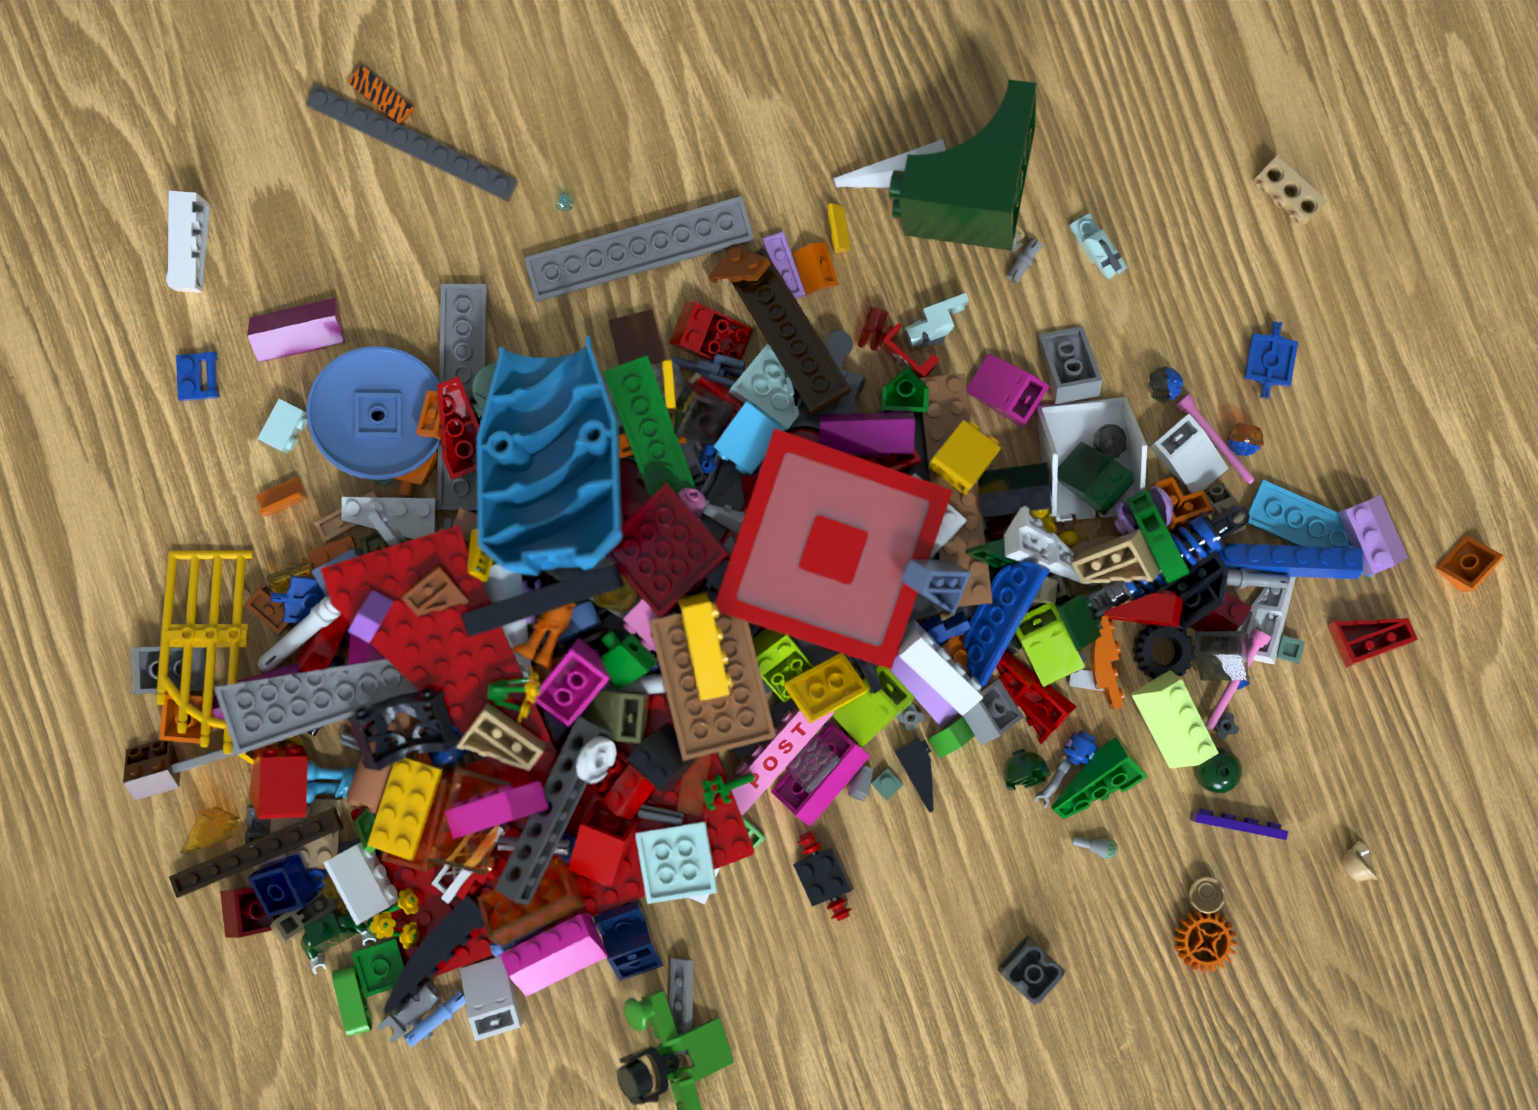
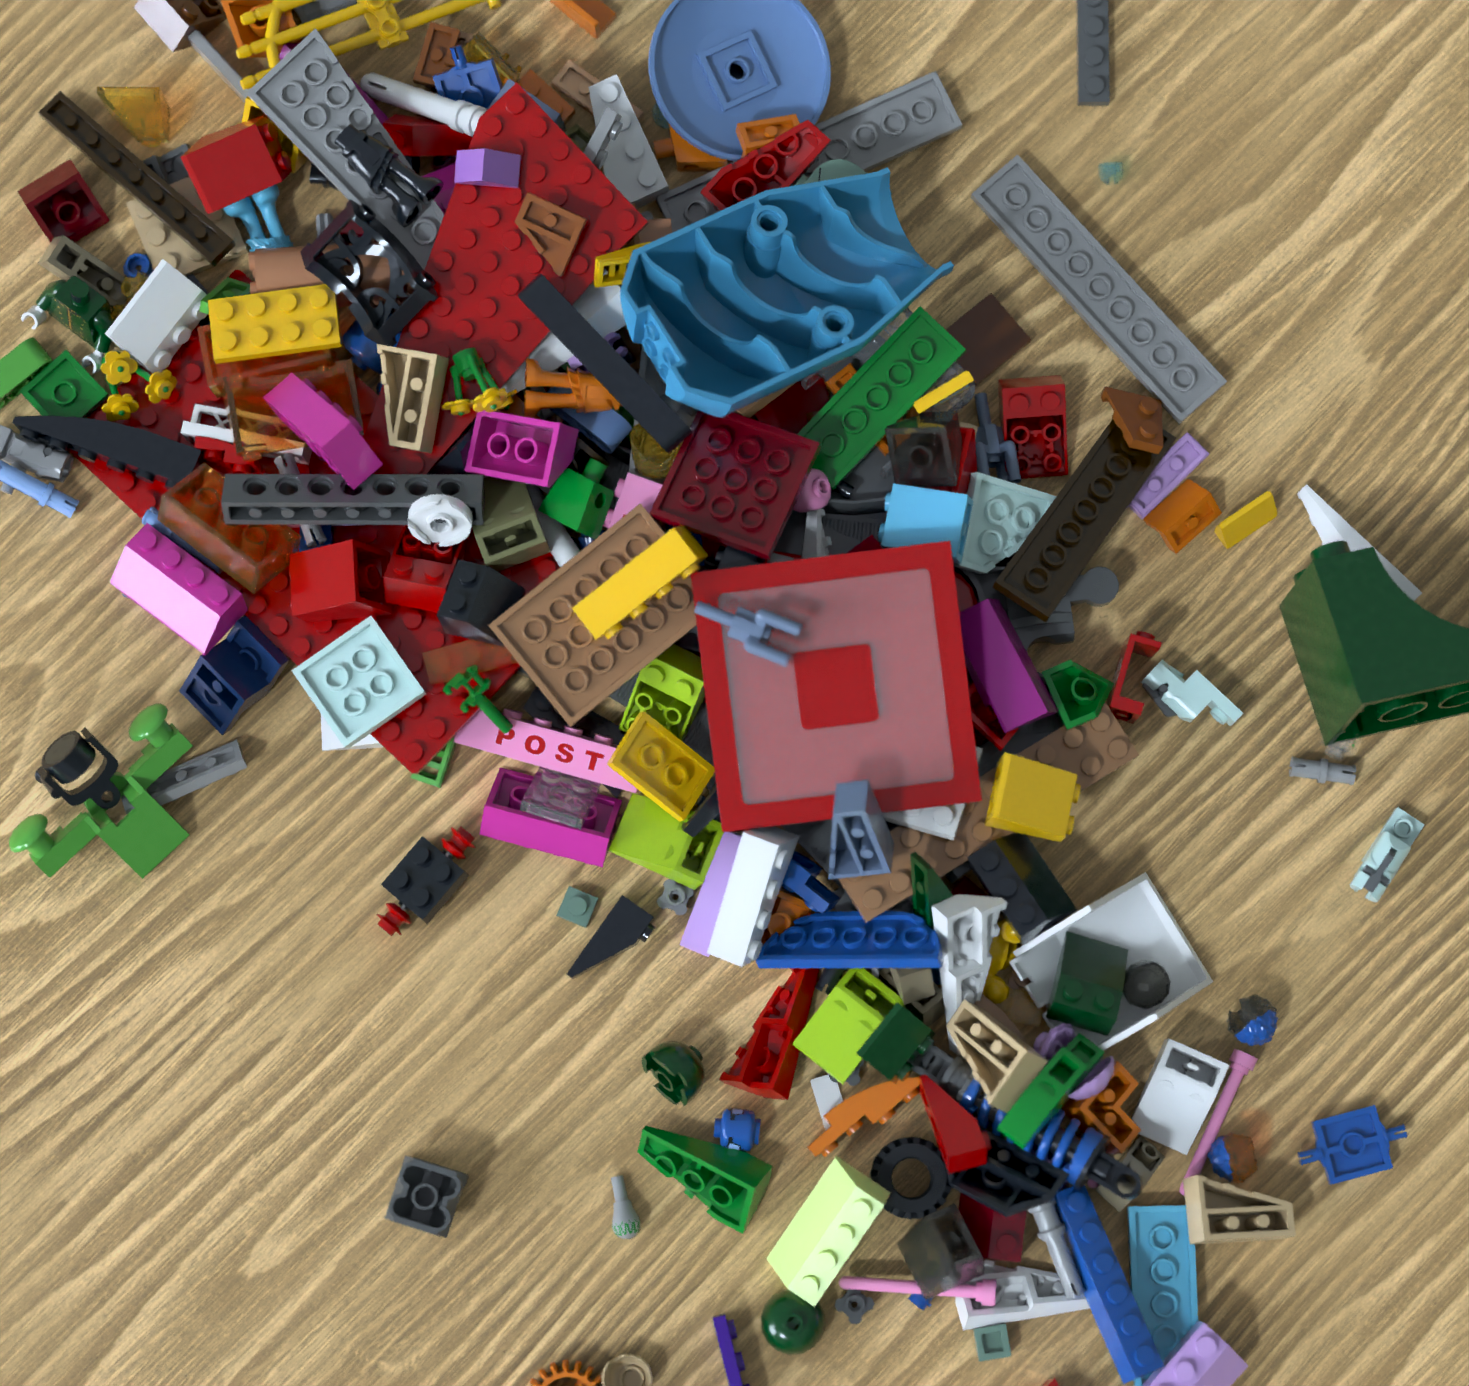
camera: 60 degrees right, 5 degrees down
(283, 885) = (111, 228): clear blue brick -> none
(328, 687) = (376, 162): none -> black piece
(490, 998) = (85, 541): white slope -> none
(661, 814) = (409, 636): dark grey axle -> none
(707, 460) = (874, 489): blue arm -> none
(773, 585) = (753, 629): none -> sand blue plant
(861, 783) = (561, 873): light grey cone -> none
(873, 324) = (1147, 619): clear red hinge -> none
(951, 737) = (677, 962): bright green slope -> none
(993, 713) = (729, 995): light grey slope -> none
(1007, 389) = (1147, 824): dark pink slope -> none
(1061, 770) = (677, 1116): light grey arm -> none
(1070, 365) = (1217, 889): light grey slope -> none
(1284, 458) = (1231, 1214): none -> tan wedge

